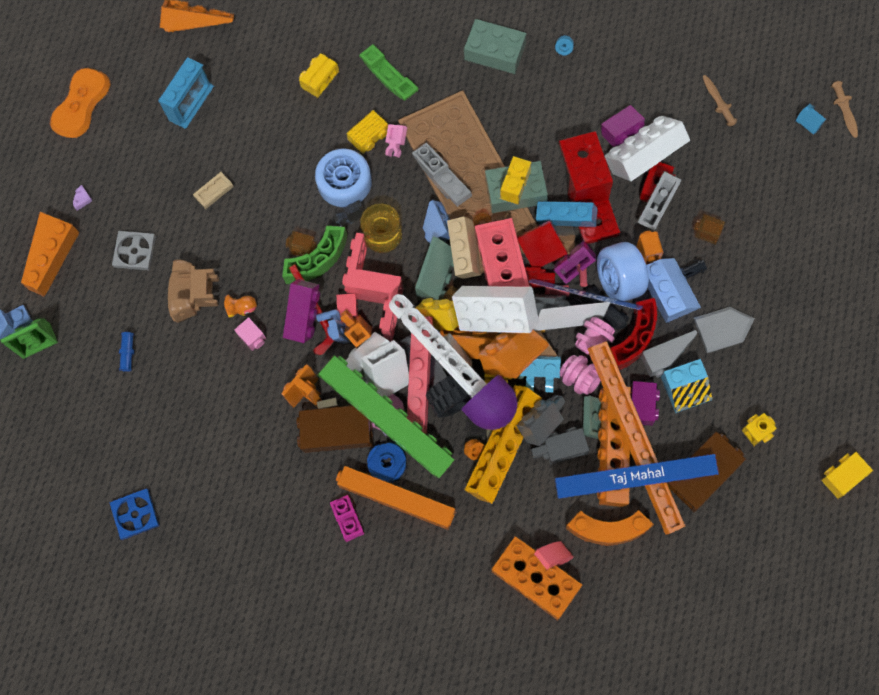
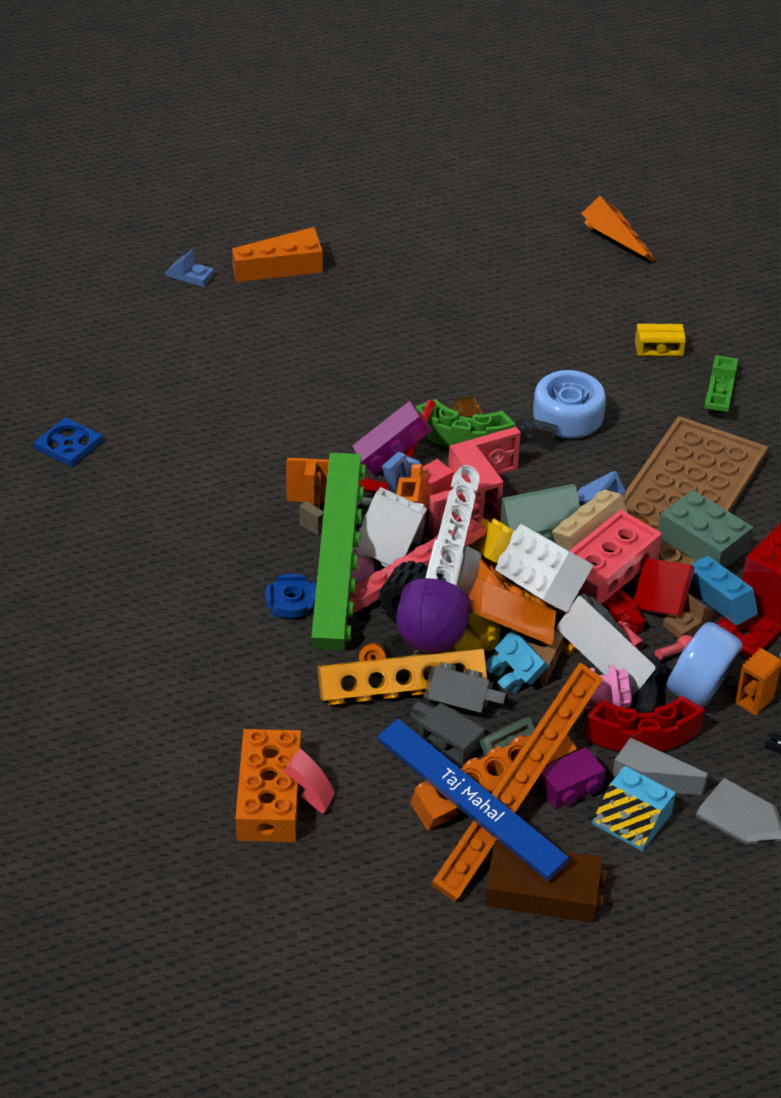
camera: 45 degrees right, 30 degrees down
(30, 339) = (183, 277): bright green slope -> none
(74, 114) = (437, 212): orange plate -> none
(81, 198) = (358, 256): lavender tile -> none
(119, 249) = (344, 321): light grey piece -> none
(126, 351) = (231, 354): blue pin -> none
(185, 93) = (534, 256): dark azure window -> none
(189, 290) = (336, 366): medium nougat piece -> none
(213, 190) = (458, 330): tan plate -> none
(239, 306) = (355, 404): orange animal -> none
(250, 334) = (333, 425): bright pink brick -> none
(333, 429) = (286, 532): reddish brown brick -> none
(346, 518) = (202, 597): dark pink slope -> none
(368, 132) = (640, 402): yellow brick -> none
(381, 228) = (545, 456): clear yellow wheel -> none
(395, 137) = (655, 424): bright pink plate -> none
(396, 497) = (259, 623): orange brick -> none
(441, 175) = (653, 468): light grey slope -> none
(515, 180) = (693, 504): yellow piece -> none
(567, 266) = (663, 626): magenta piece -> none
(577, 372) = (540, 694): bright pink piece -> none
(586, 294) = (644, 646): blue sticker -> none
(609, 532) = (386, 828): orange brick -> none
(670, 289) = (735, 733): light blue slope -> none
(759, 429) = (649, 905): yellow brick -> none
(846, 475) = (678, 1030): yellow brick -> none

